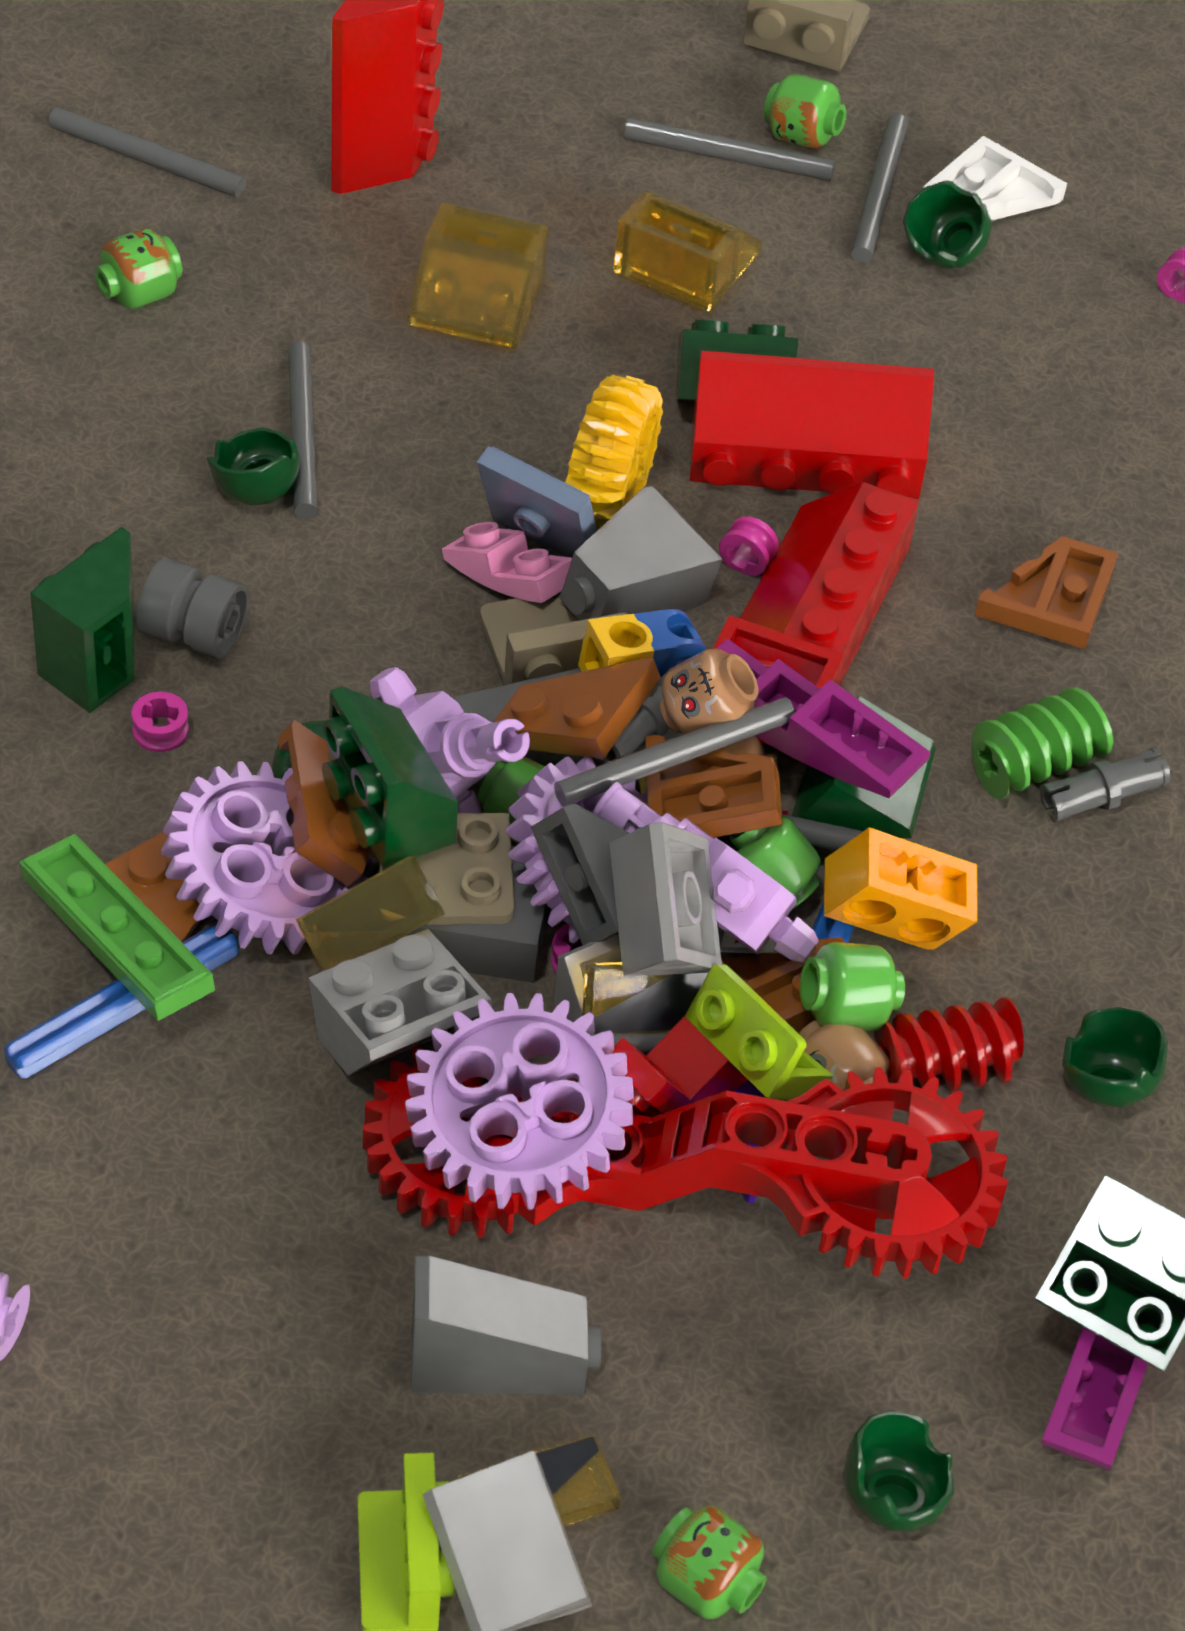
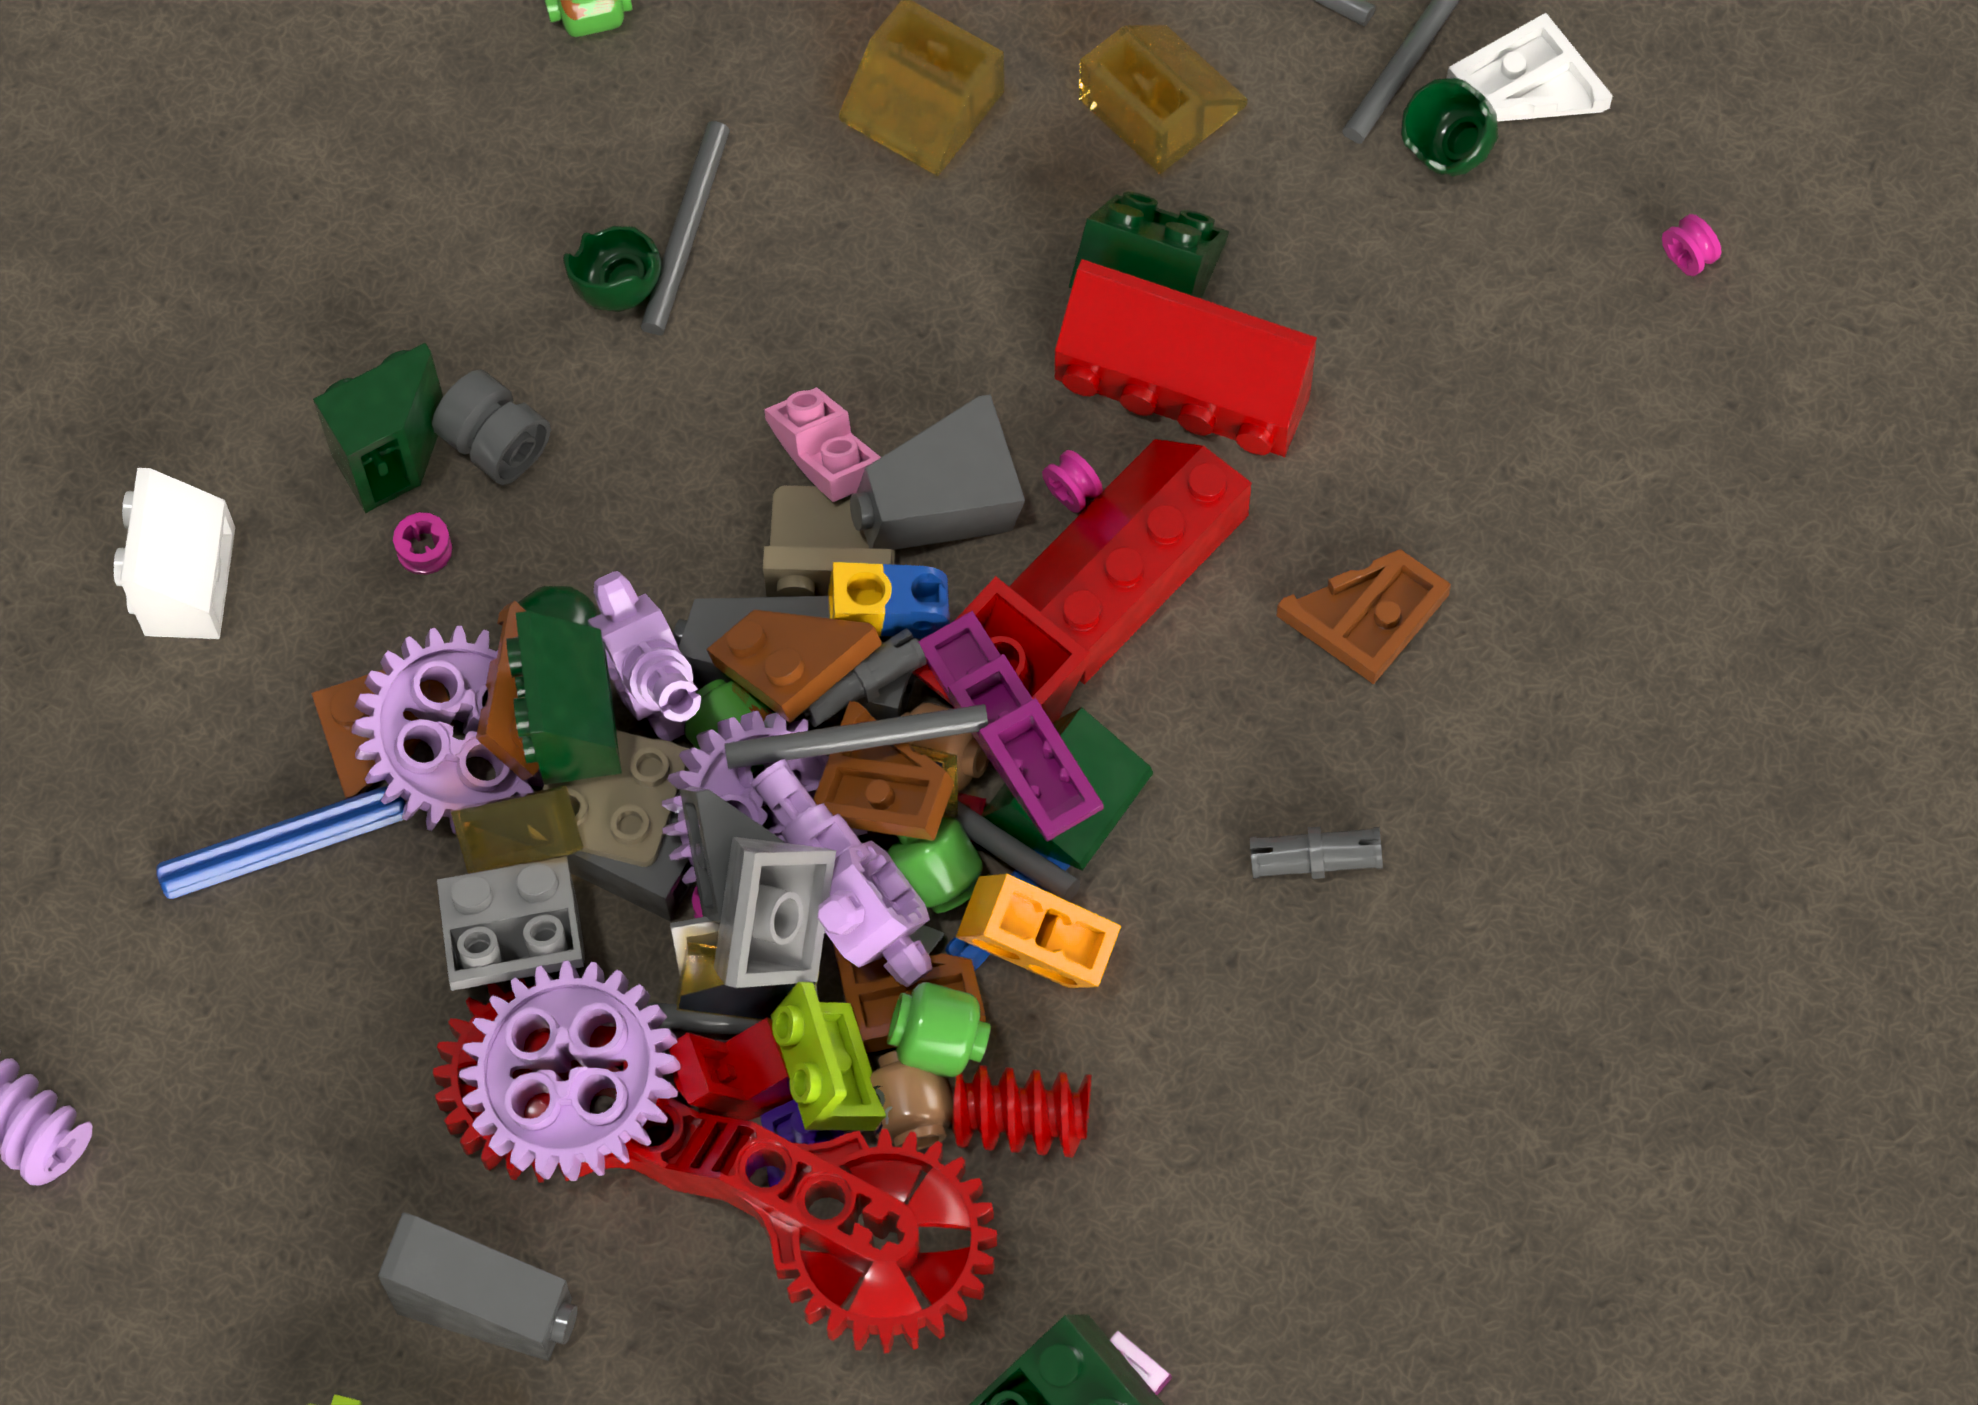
camera: 25 degrees right, 15 degrees up
(117, 927) = (297, 766): bright green tile -> none
(535, 502) = (860, 396): sand blue plate -> none
(616, 444) = (964, 344): yellow gear -> none
(707, 691) = (913, 679): medium nougat head -> none
(1039, 740) = (1265, 788): bright green piece -> none
(1116, 1057) = (1179, 1164): dark green hair -> none

